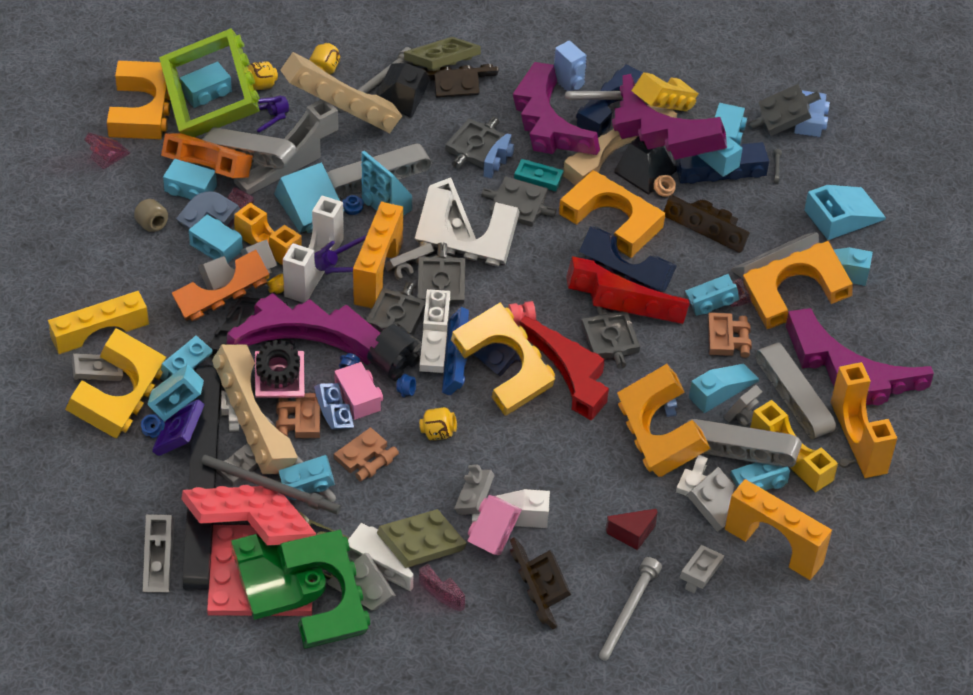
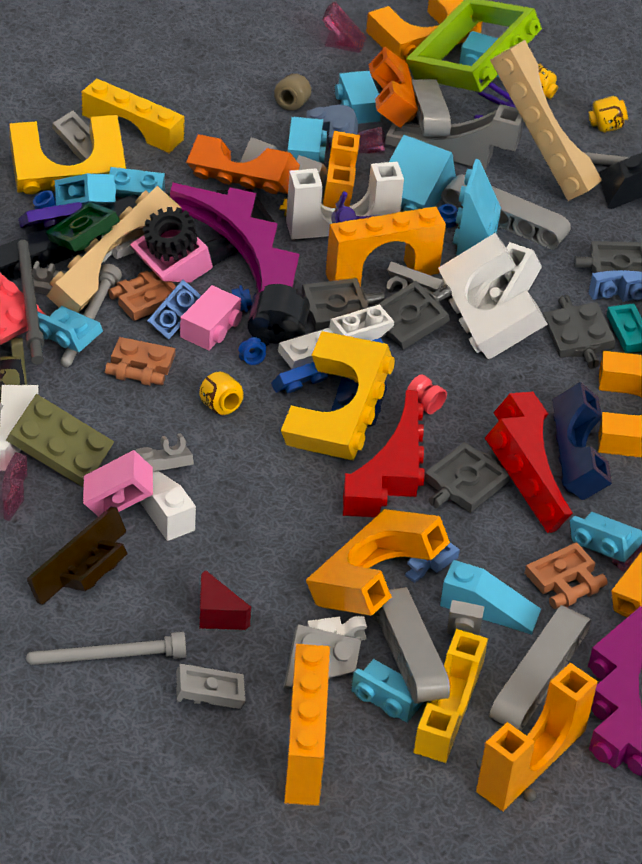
camera: 55 degrees right, 5 degrees down
(227, 411) = (83, 226): none -> dark green plate

